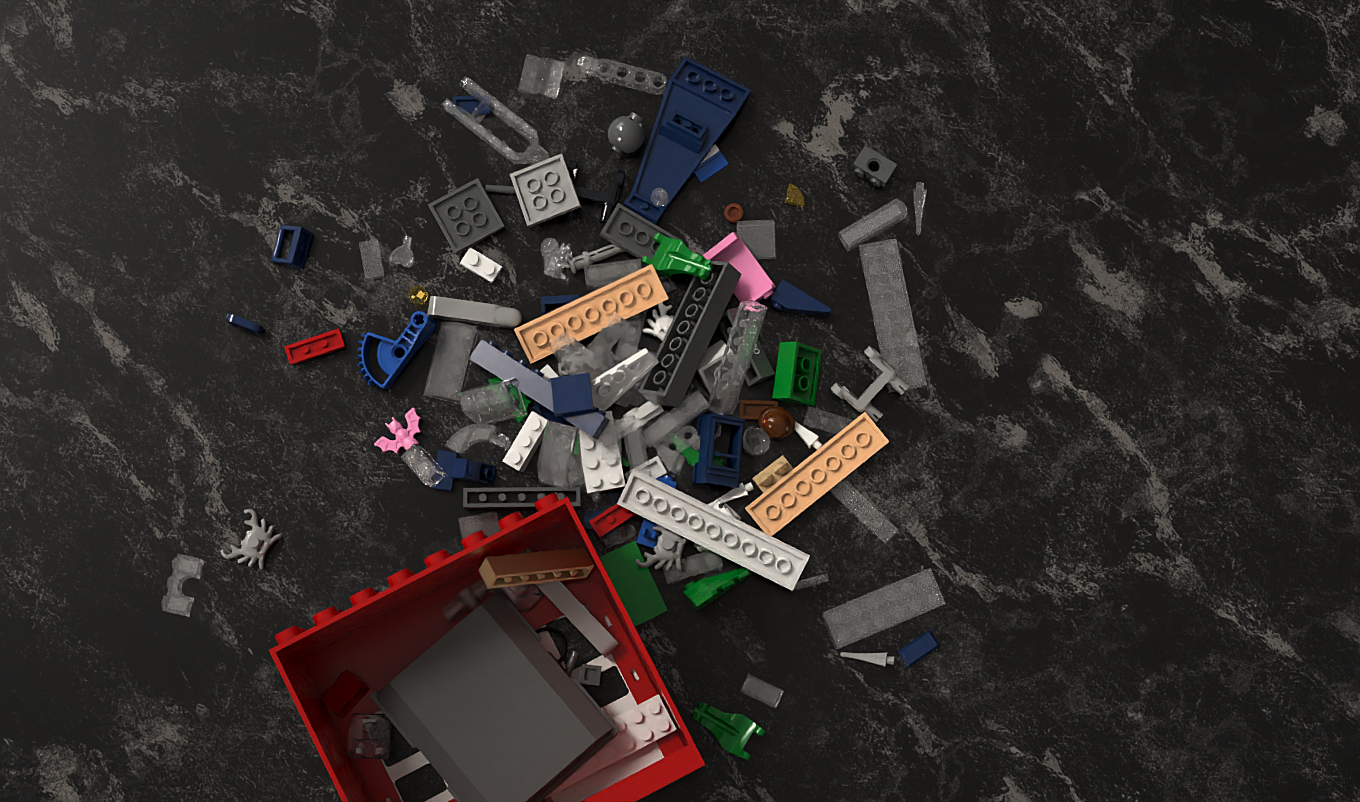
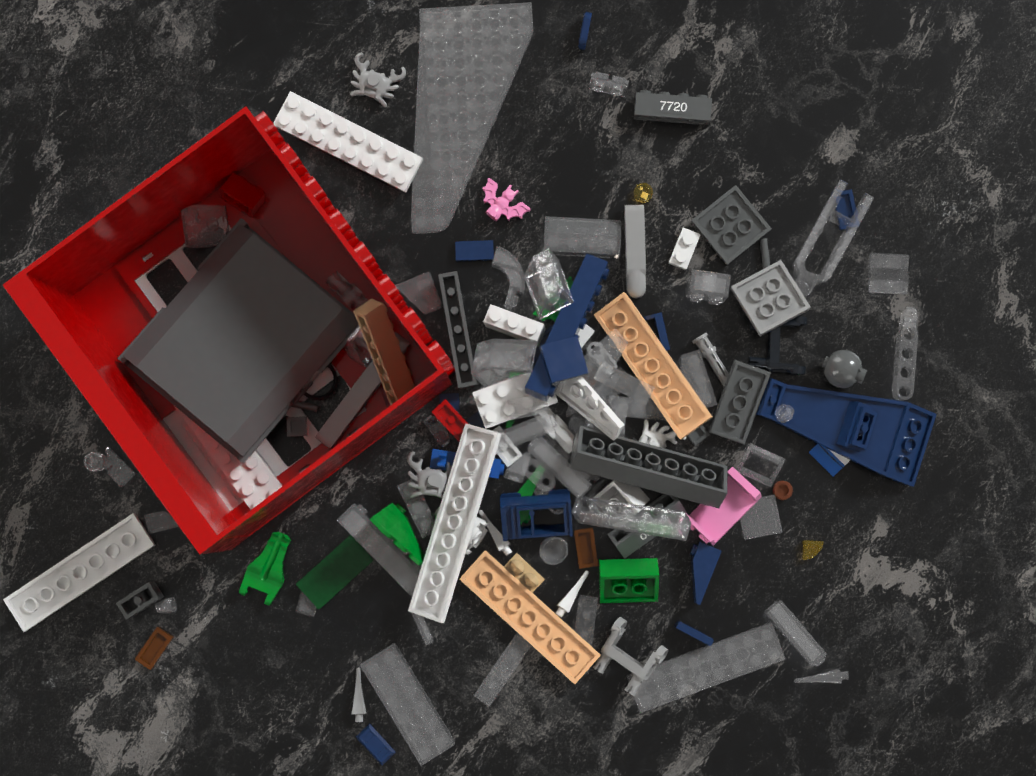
camera: 85 degrees right, 5 degrees up
(183, 568) = (307, 19): clear arch -> none
(270, 454) = (462, 81): none -> clear wing
(298, 249) = (667, 67): dark blue tile -> none
(306, 302) = (616, 86): none -> clear hinge
(311, 576) = (348, 141): none -> white plate
(314, 347) = (574, 102): red plate -> none
(339, 252) = (672, 108): none -> dark grey brick
(371, 259) = (671, 141): clear tile -> none
(387, 353) = (604, 198): blue arm -> none
(403, 254) = (681, 170): clear rock -> none
(423, 465) = (474, 228): clear brick -> none
(472, 471) = (477, 277): dark blue slope -> none
(523, 247) = (708, 286): none -> clear brick
(555, 260) = (703, 320): clear animal -> none
(634, 584) = (389, 454): green tile -> none
(675, 258) = (723, 439): green animal -> none
(689, 234) = (764, 454): none -> clear tile
(726, 609) = (380, 547): none -> clear brick
(742, 662) = (334, 572): none -> dark green sticker
(776, 422) = (575, 567): reddish brown hat -> none
(860, 316) = (694, 633): none -> dark blue tile
(870, 157) = (864, 617): dark grey brick -> none

